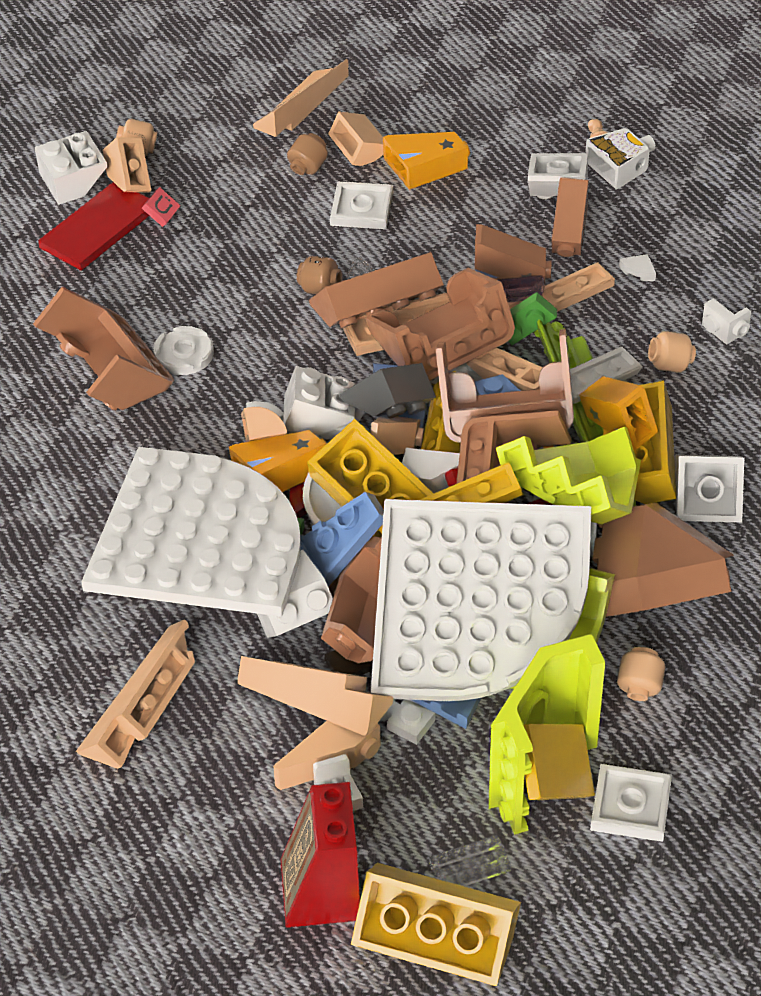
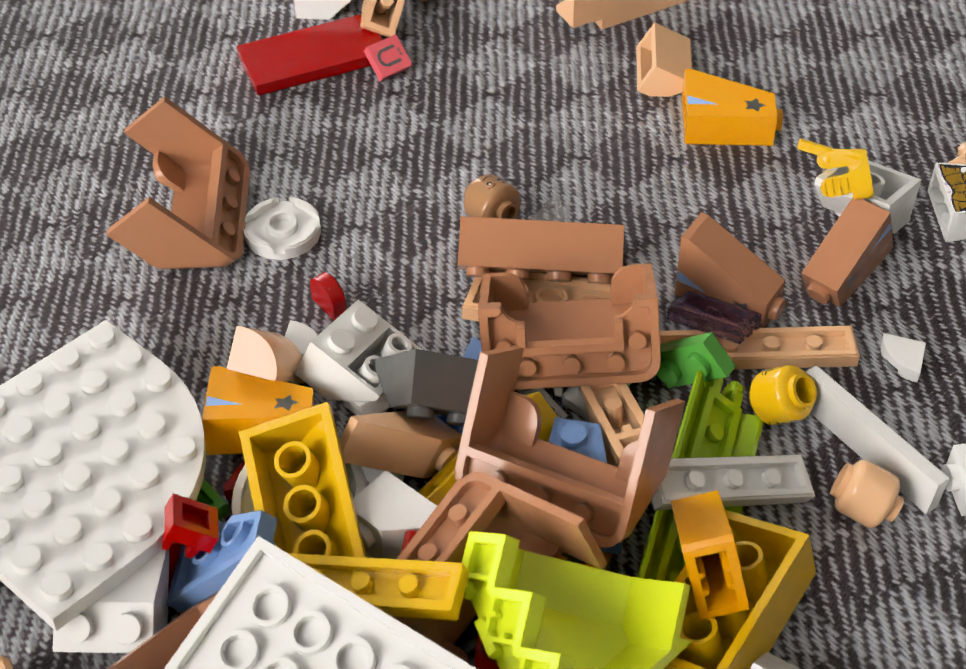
camera: 30 degrees right, 0 degrees up
(258, 377) = (328, 294): none -> red tile
(307, 154) = (590, 59): medium nougat head -> none
(313, 529) = (190, 524): none -> red tile
(361, 205) = (612, 140): white tile -> none
(548, 157) = (856, 181): none -> yellow helmet
(589, 317) = (782, 395): none -> yellow head
(651, 319) = (876, 442): none -> white tile

